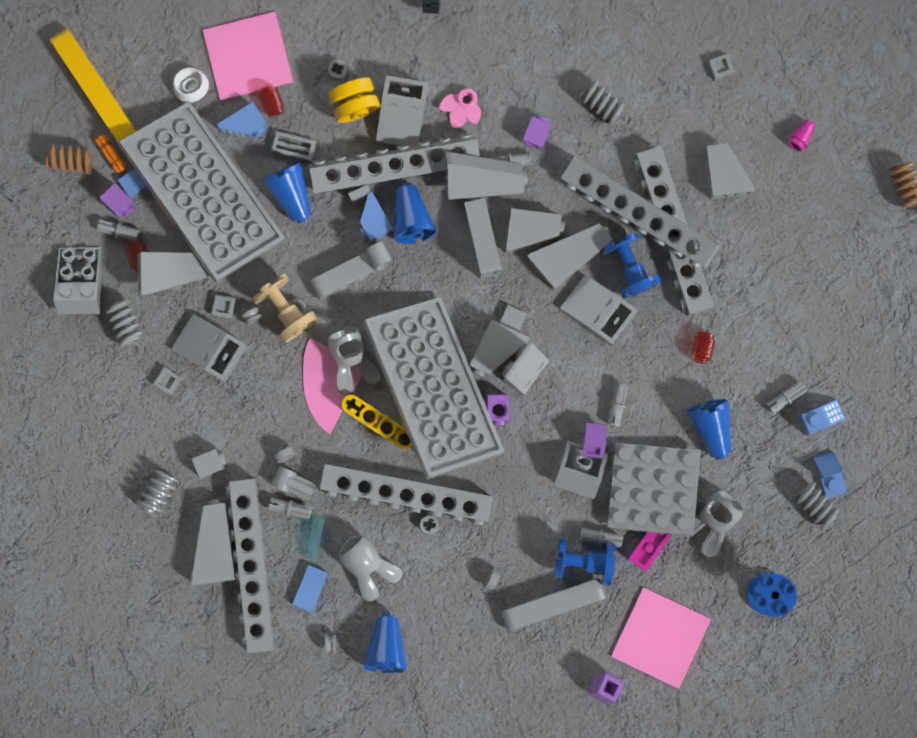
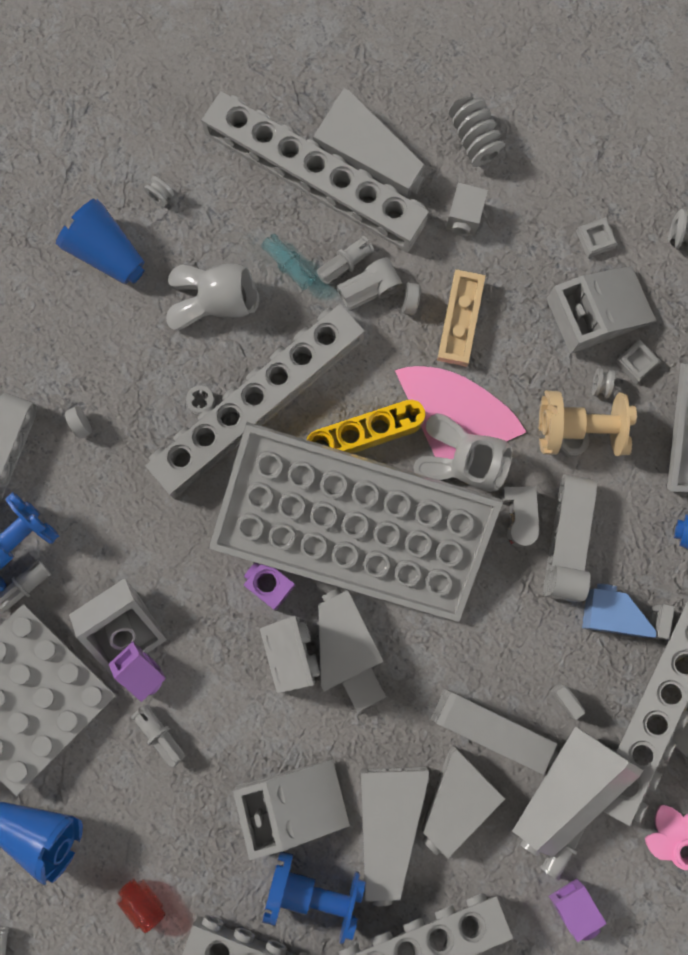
camera: 130 degrees right, 5 degrees down
(273, 419) = (461, 318): none -> tan plate
(310, 588) = (238, 217): medium blue tile -> none
(364, 300) = (523, 514): none -> light grey leg
(411, 216) = (586, 663): blue cone -> none
(438, 210) = (567, 701): none -> light grey tile

